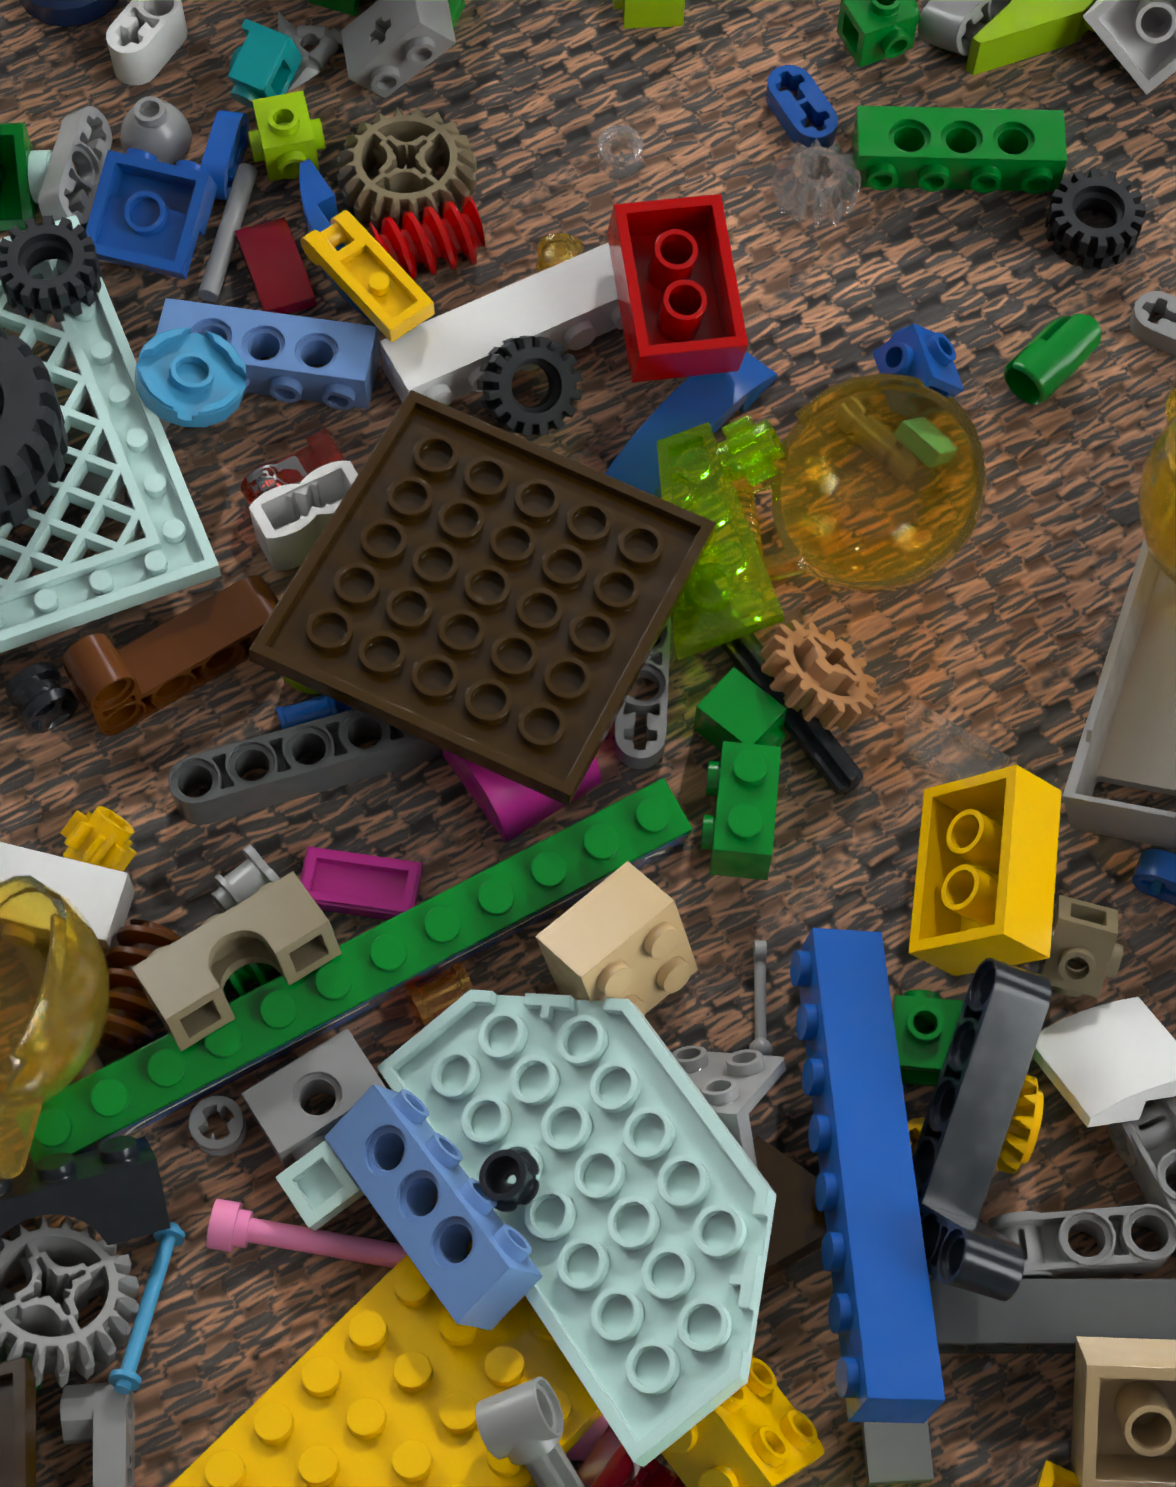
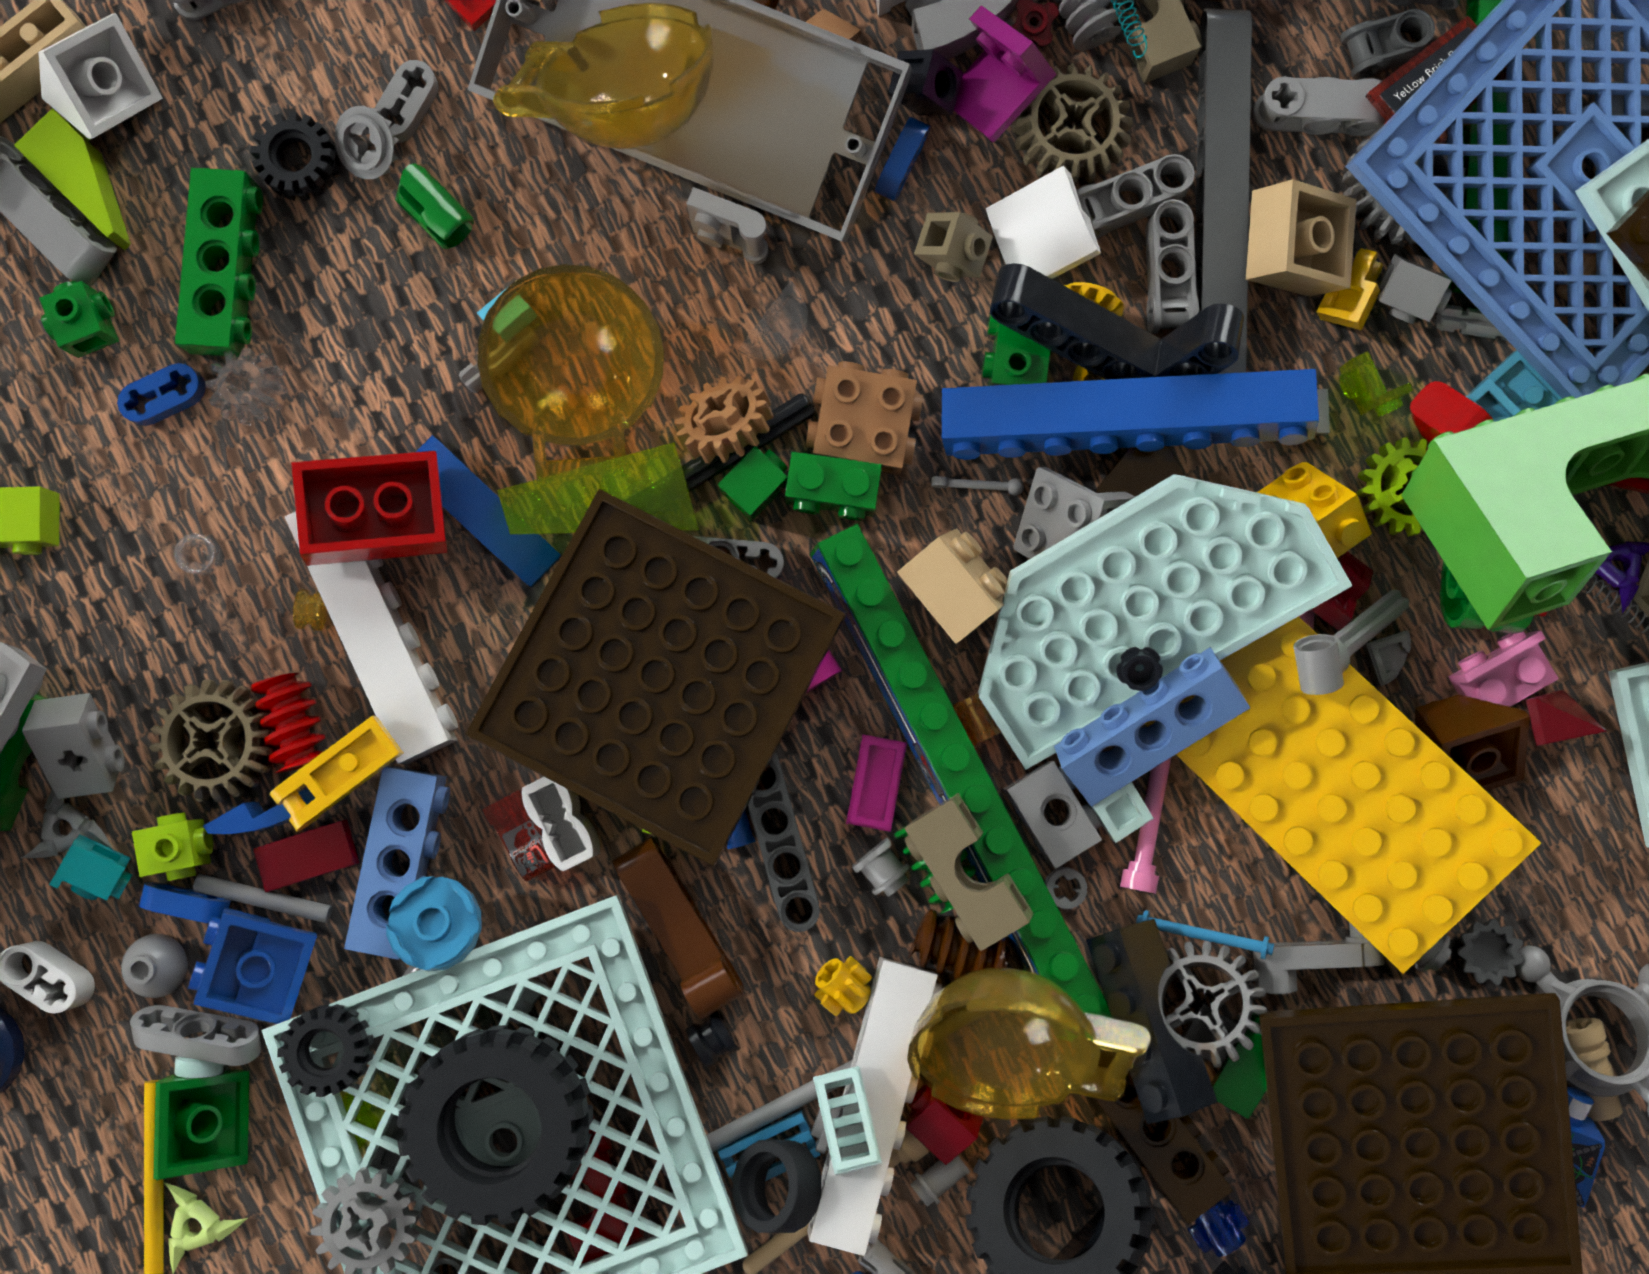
camera: 90 degrees left, 20 degrees up
(561, 380) = (461, 621): black tyre -> none
(750, 450) = (528, 457): clear neon green gear -> none
(836, 849) = (865, 416): none -> medium nougat brick
(922, 355) = (442, 317): blue brick -> none
(986, 871) = (899, 305): yellow brick -> none
(1066, 667) = (728, 223): none -> light grey plate
(1121, 284) = (352, 148): none -> light grey gear

